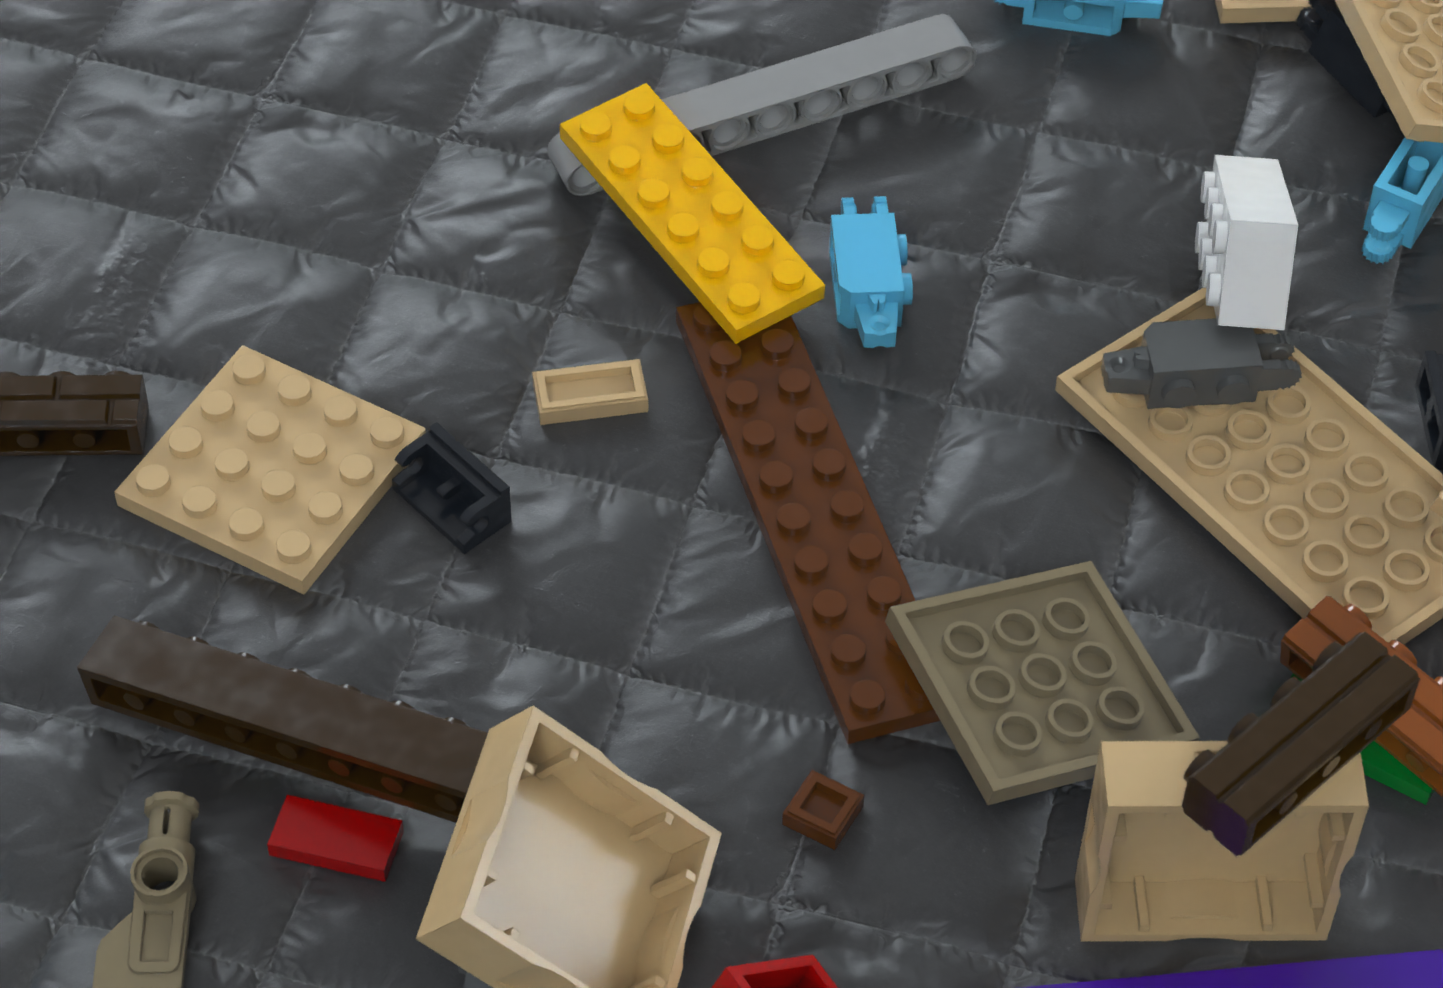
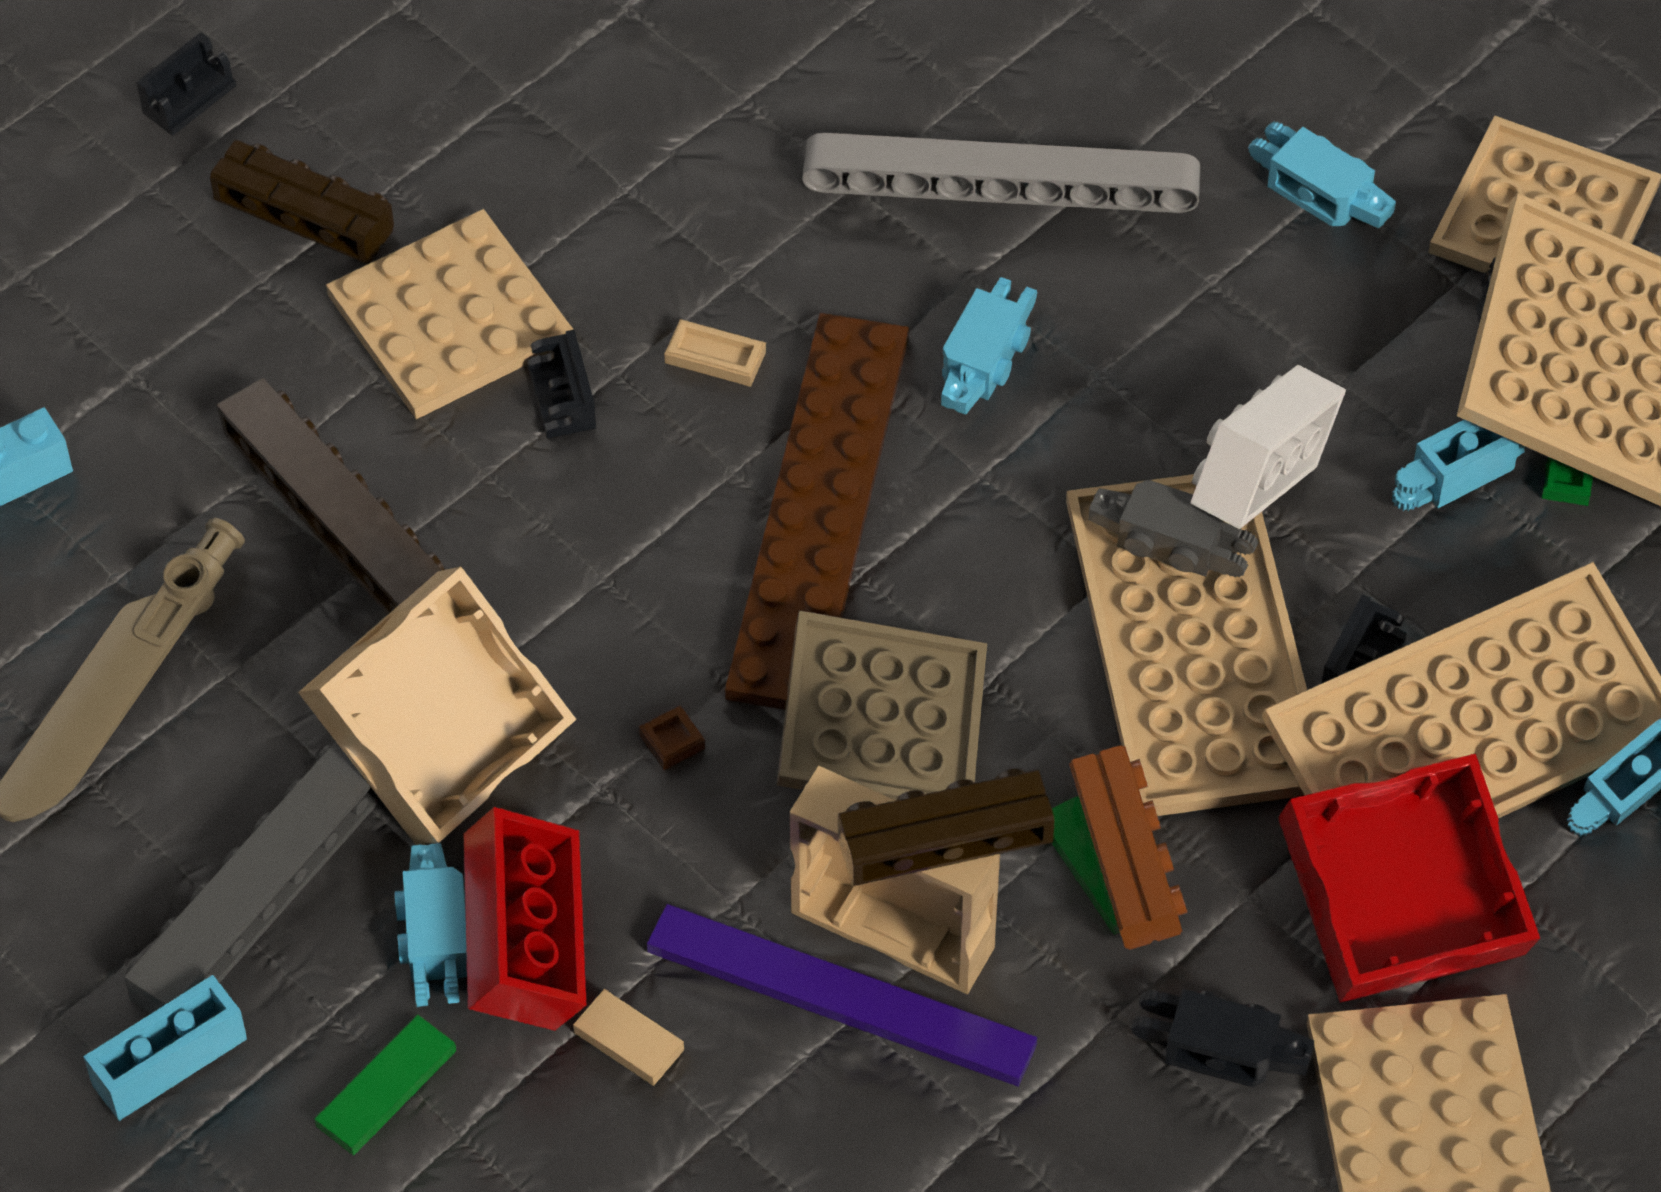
camera: 30 degrees right, 5 degrees up
(335, 838) = (326, 604): red tile -> none
(692, 213) = (871, 241): yellow plate -> none

